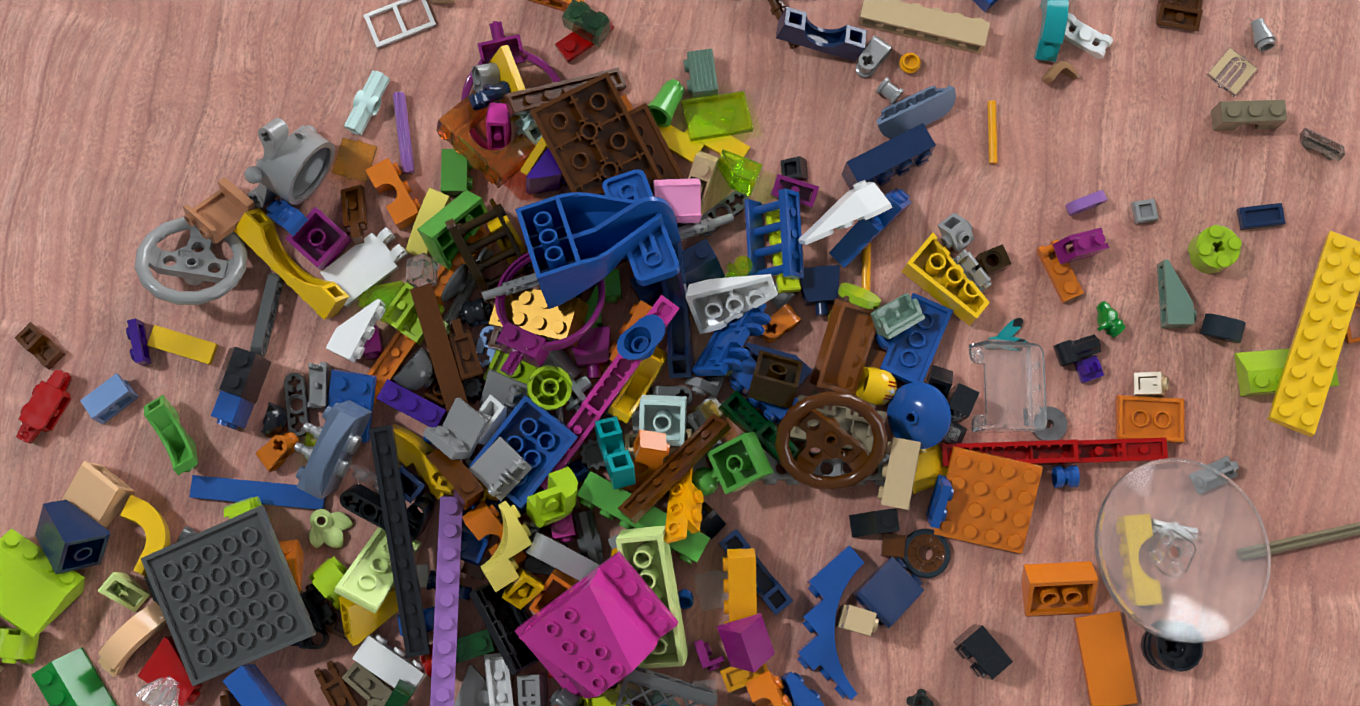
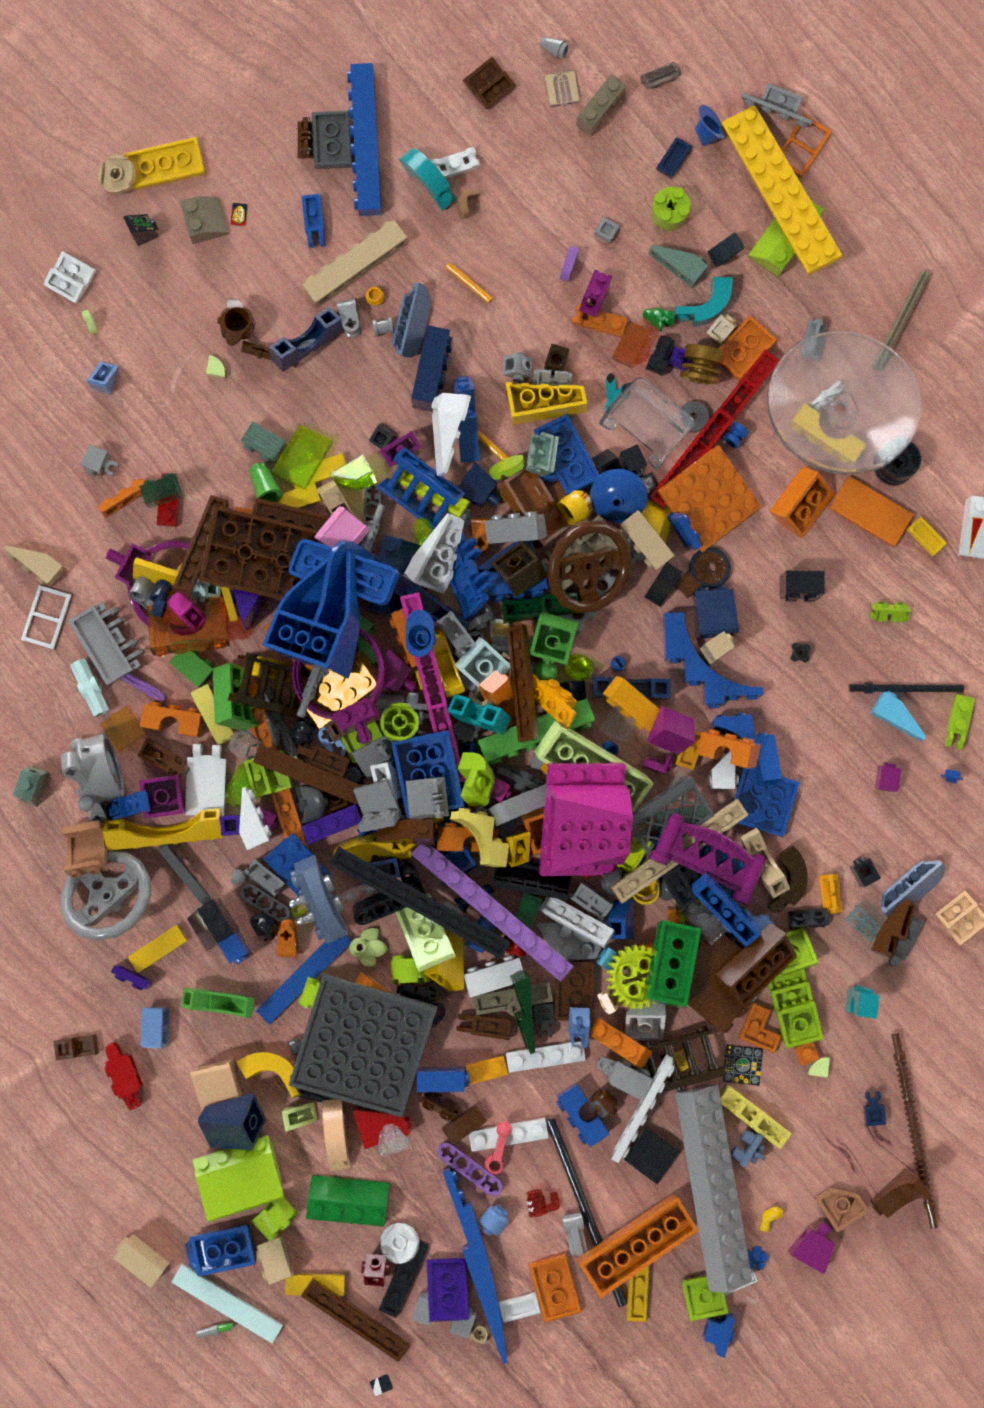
camera: 55 degrees left, 5 degrees up
(239, 121) = (30, 785): none -> sand green torso
(301, 361) = (238, 876): none -> light grey hinge
(338, 315) = (230, 825): none -> dark purple brick
(413, 81) = (103, 643): none -> light grey hinge
(672, 372) = (456, 632): none -> light grey hinge
(734, 508) = (579, 667): none -> clear neon green hair
(763, 541) = (615, 666): none -> blue hinge
(811, 347) = (515, 527): none -> light grey brick
(1063, 315) = (631, 344): none -> clear orange brick
(1105, 390) = (702, 364): none -> pearl gold wheel
(1159, 360) = (720, 294): none -> teal arch
(1316, 222) = (708, 126): none -> blue piece

